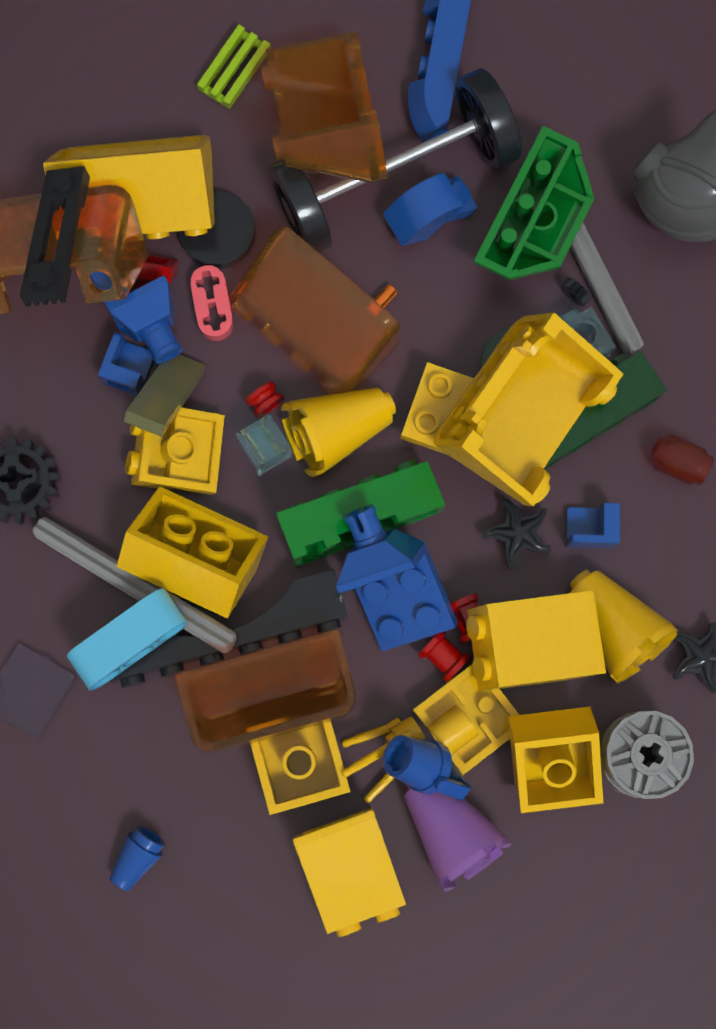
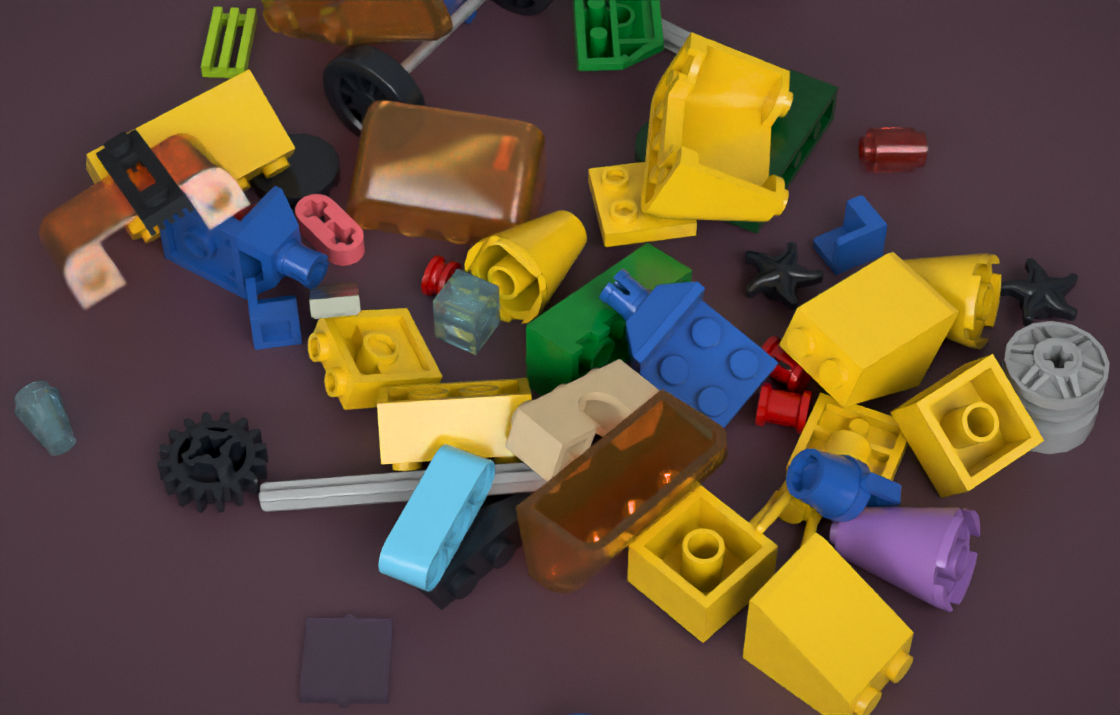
camera: 25 degrees left, 30 degrees down
(233, 627) = (563, 423): none -> tan arch
(429, 206) = (500, 58): blue brick -> none

